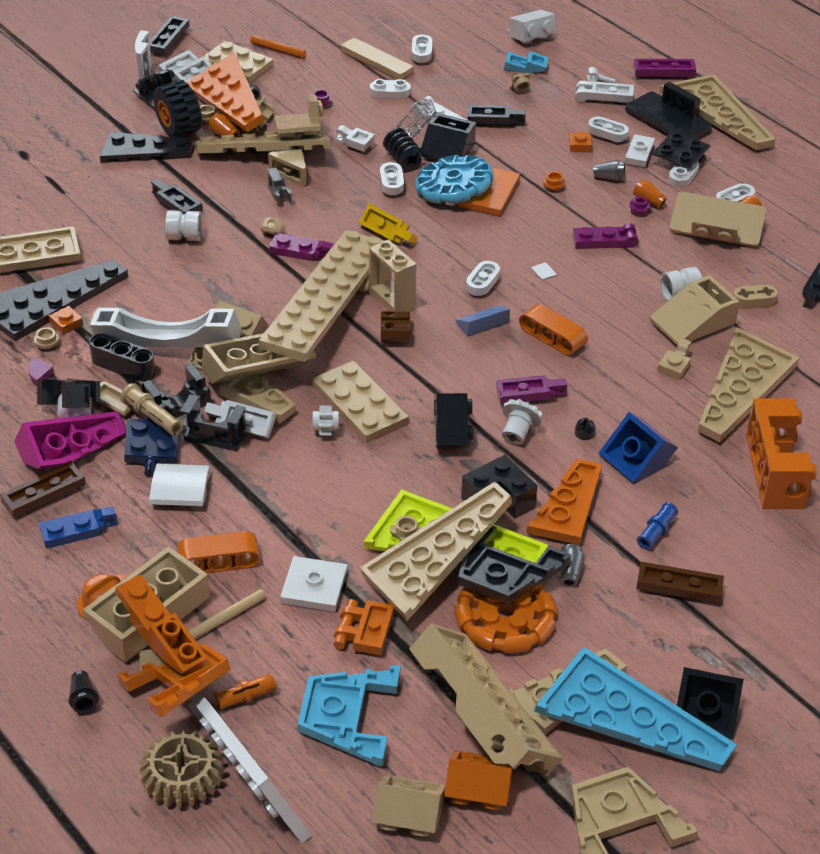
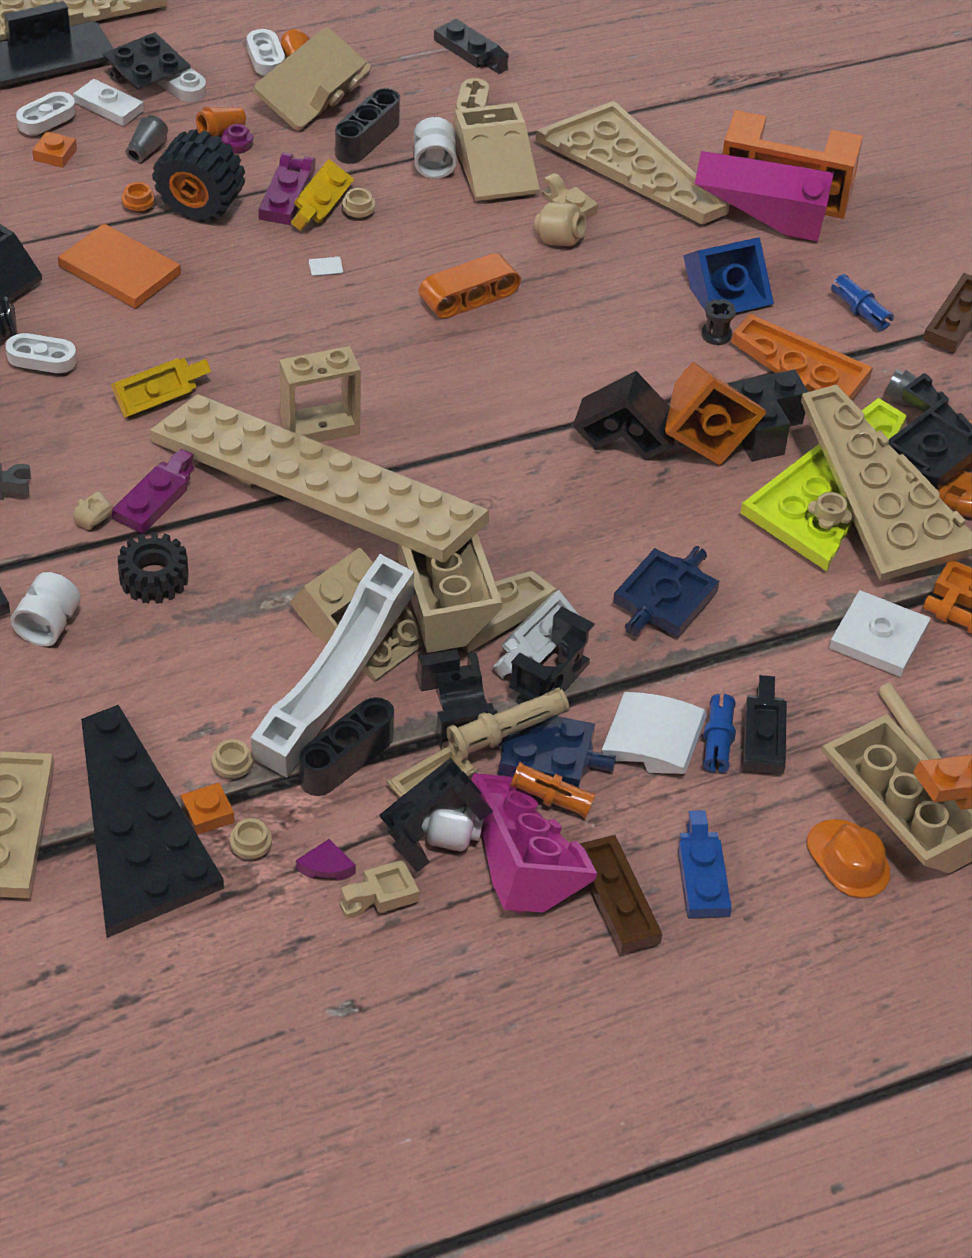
camera: 75 degrees left, 5 degrees up
(20, 395) = (385, 886): none -> tan plate
(114, 446) = (552, 790): none -> orange pin
(188, 514) = (719, 733): none -> blue pin
(213, 526) = (765, 729): none -> black hinge
(221, 551) = (808, 714): orange beam -> none
(236, 258) = (153, 583): none -> black tyre
(305, 469) = (666, 591): none -> dark blue plate
(326, 420) = (580, 546): white gear -> none
(360, 401) = (542, 508): tan plate -> none
(395, 326) = (399, 432): reddish brown piece -> none
(454, 179) = (98, 303): medium azure plate -> none
(471, 445) = (710, 414): none -> orange slope
(483, 278) = (328, 321): white plate -> none
(484, 320) = (412, 345): medium blue slope -> none
(520, 418) = (649, 361): white gear -> none
(530, 388) = (580, 341): magenta hinge -> none
(569, 188) = (198, 176): none -> black wheel
(586, 447) = (718, 322): none -> black bush
(588, 431) = (667, 315): black hinge -> none
(603, 249) = (321, 194): none -> yellow hinge
(608, 267) = (358, 203): none -> tan plate
(642, 357) = (560, 224): none -> tan head
(687, 253) = (367, 126): none -> black beam
(737, 449) = (775, 193): none -> dark pink wedge

